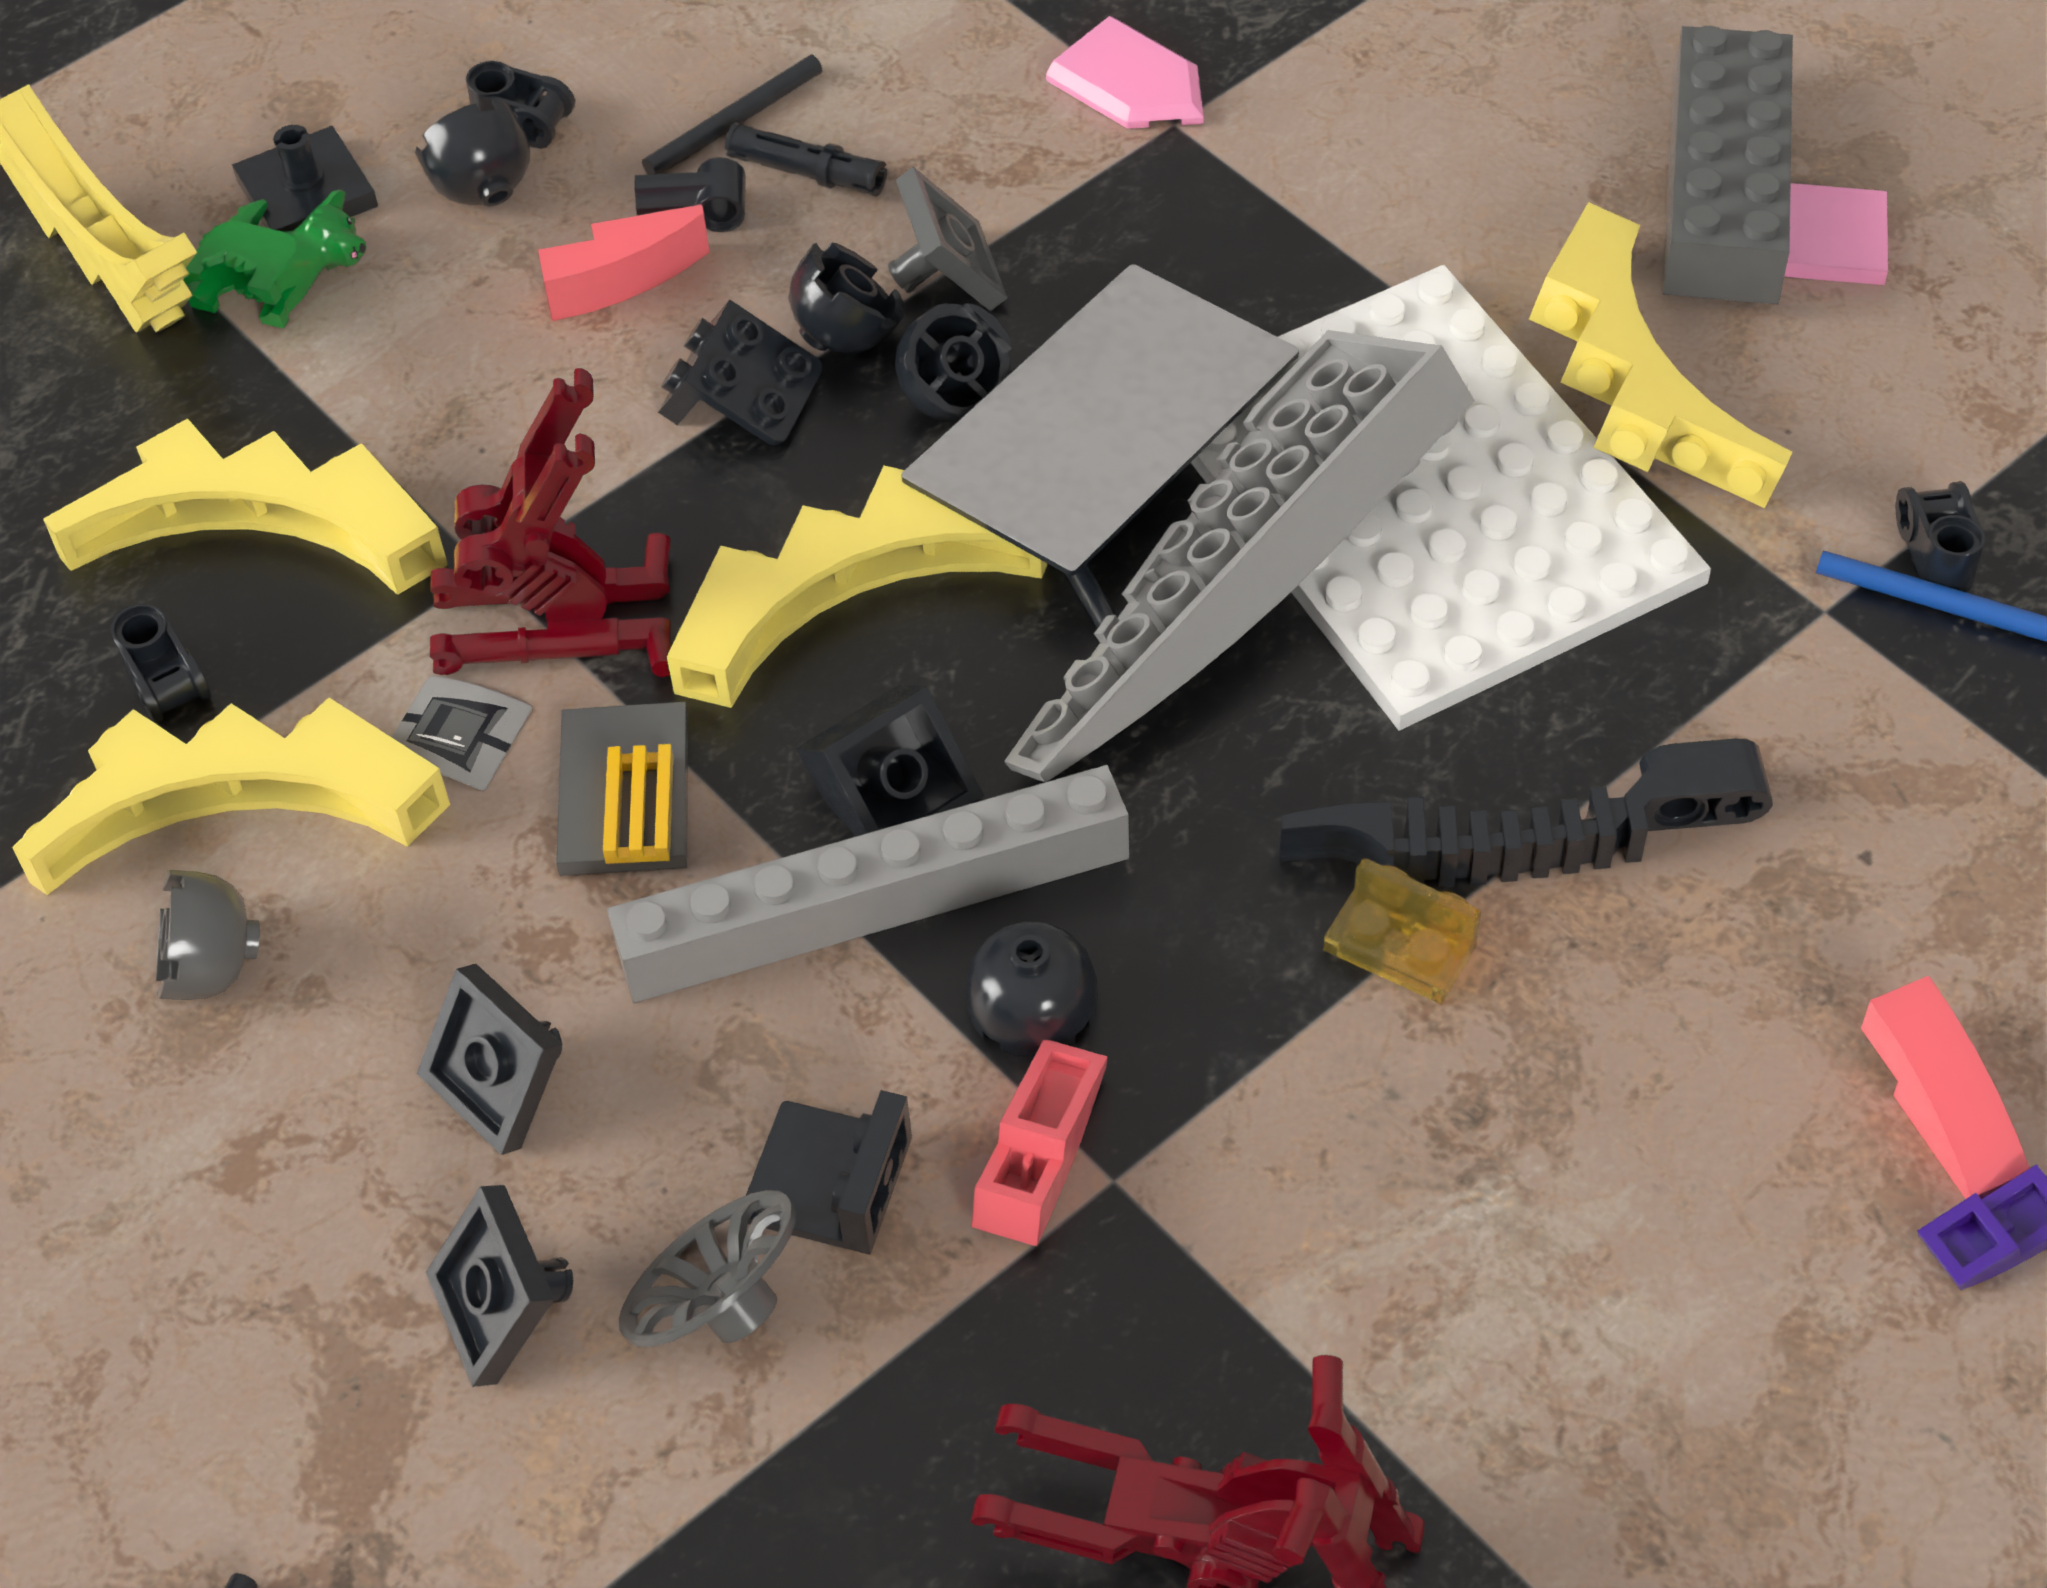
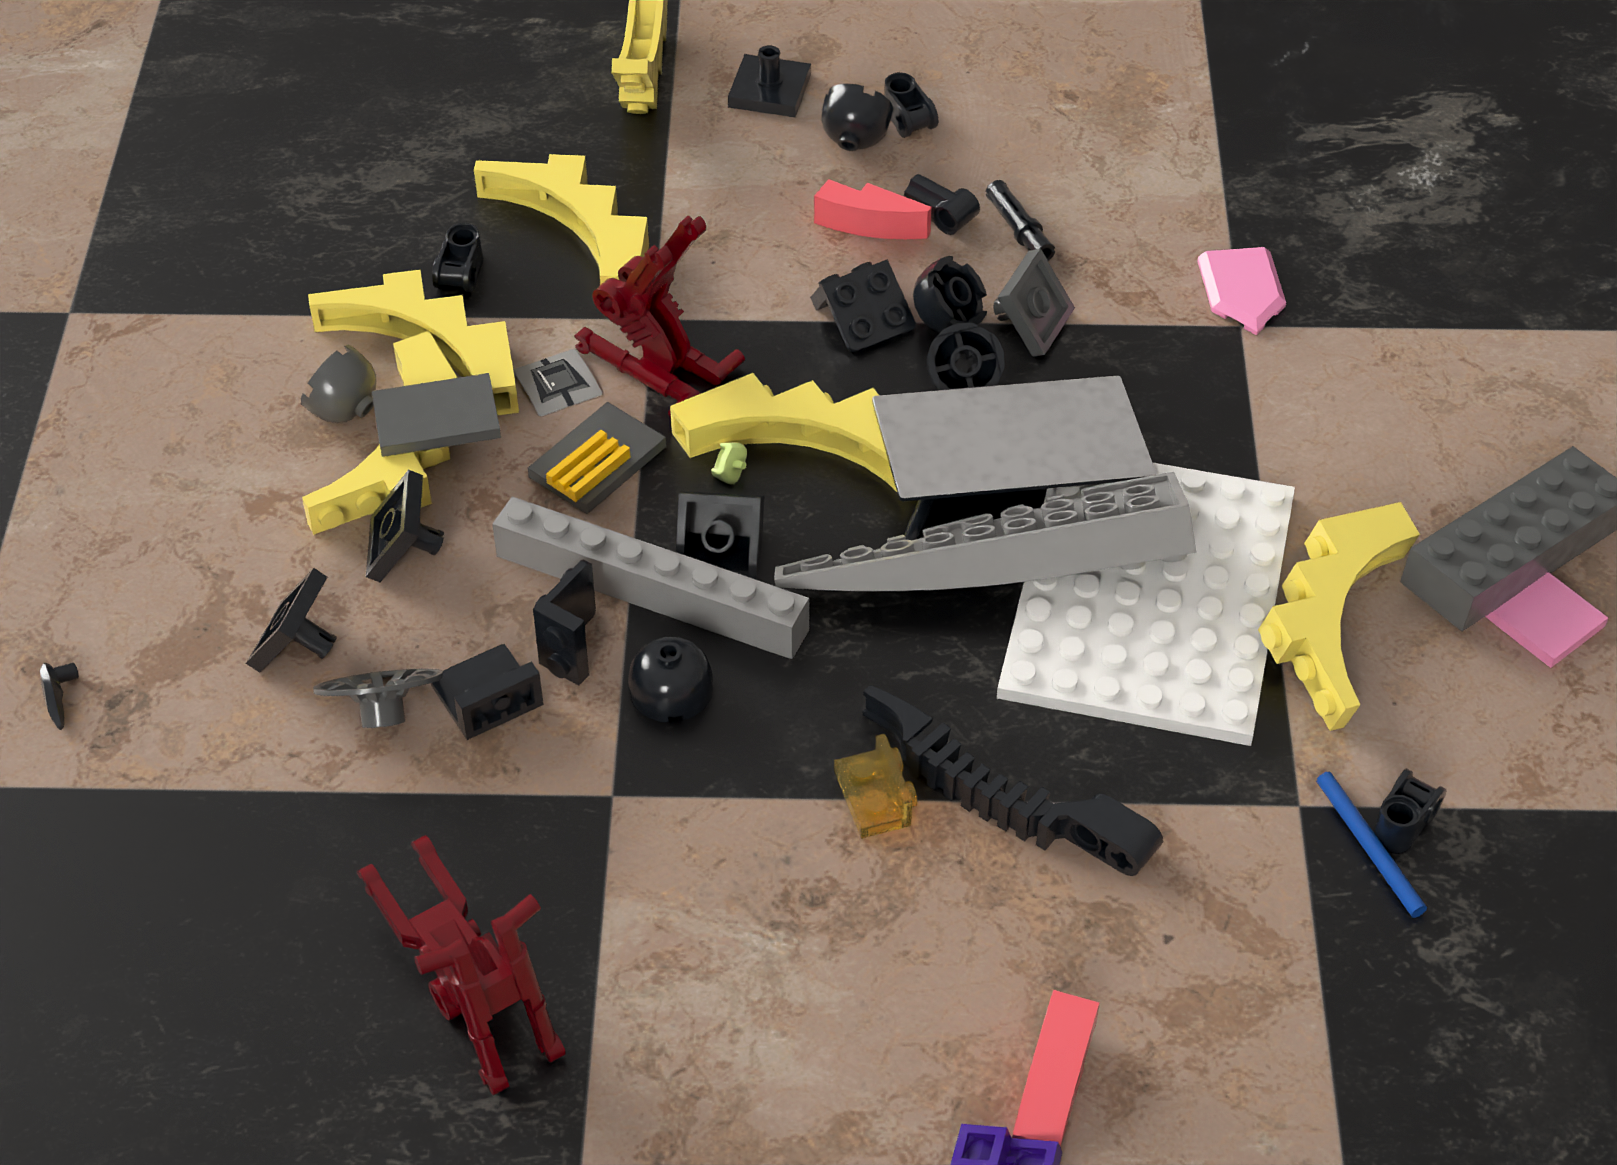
camera: 40 degrees right, 5 degrees down
(269, 262) = (707, 112): green animal -> none
(335, 871) = (368, 484): none -> light yellow arch
(384, 878) = (435, 414): none -> dark grey tile
(736, 112) = (1012, 178): black bar -> none
(795, 677) = (730, 462): none -> yellowish green piece
(860, 1034) = (561, 624): none -> black bracket
(1038, 1142) = (591, 747): coral slope -> none

